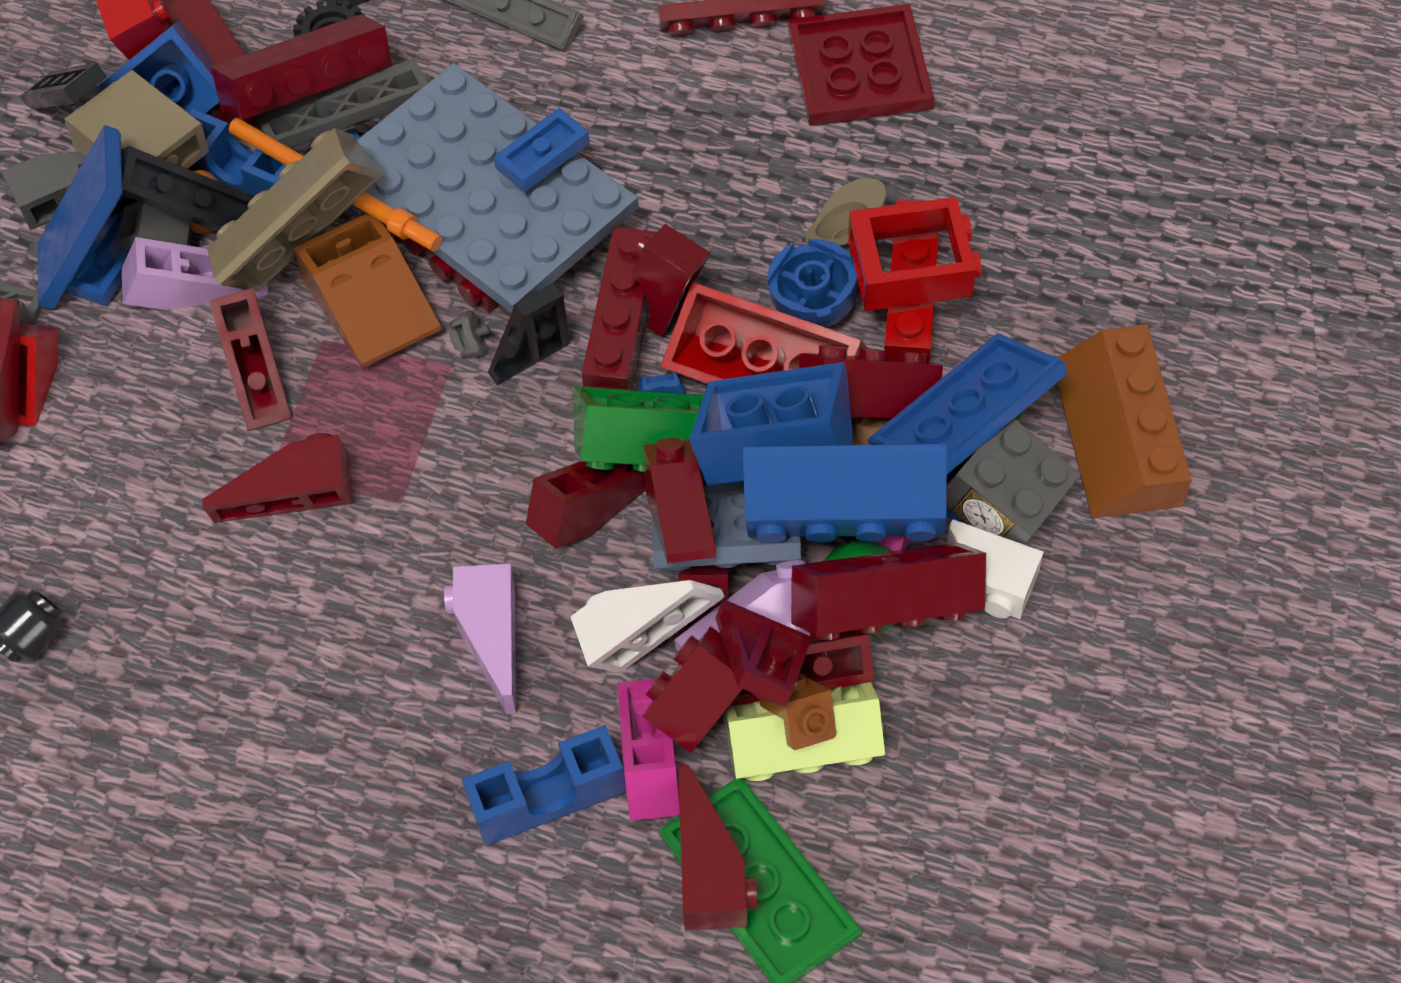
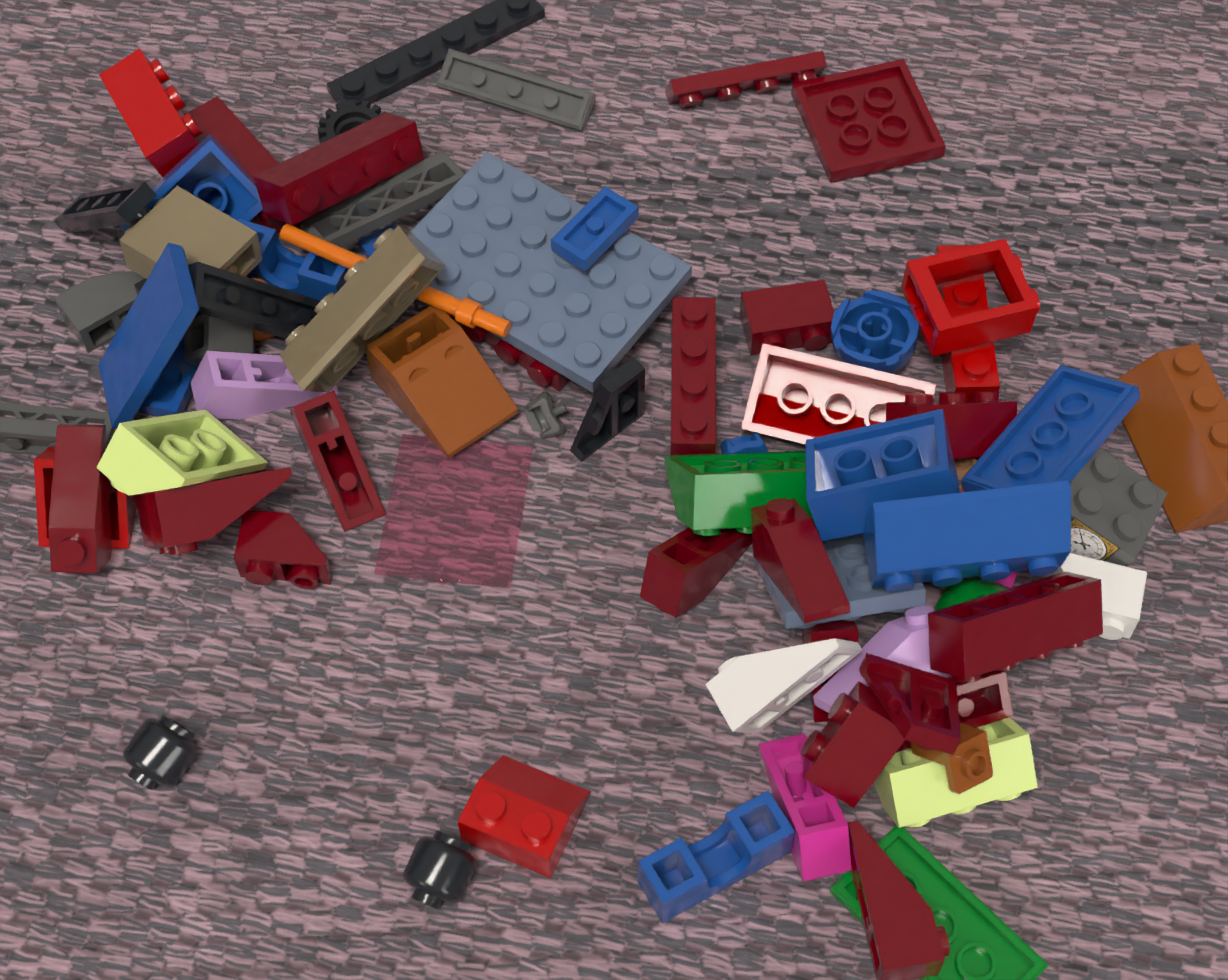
camera: 10 degrees left, 0 degrees up
(86, 334) = (175, 453): none -> yellowish green slope
(99, 393) = (198, 512): none -> dark red slope
(174, 440) = (278, 549): none -> dark red slope
(274, 768) = (439, 869): none -> black head
(292, 480) = (404, 576): dark red slope -> none
(365, 724) = (522, 815): none -> red slope
(485, 617) = (622, 700): lavender slope -> none
(665, 272) = (736, 336): dark red arch -> none
(737, 257) = (787, 316): none -> dark red brick
(834, 216) = (886, 261): dark tan piece -> none

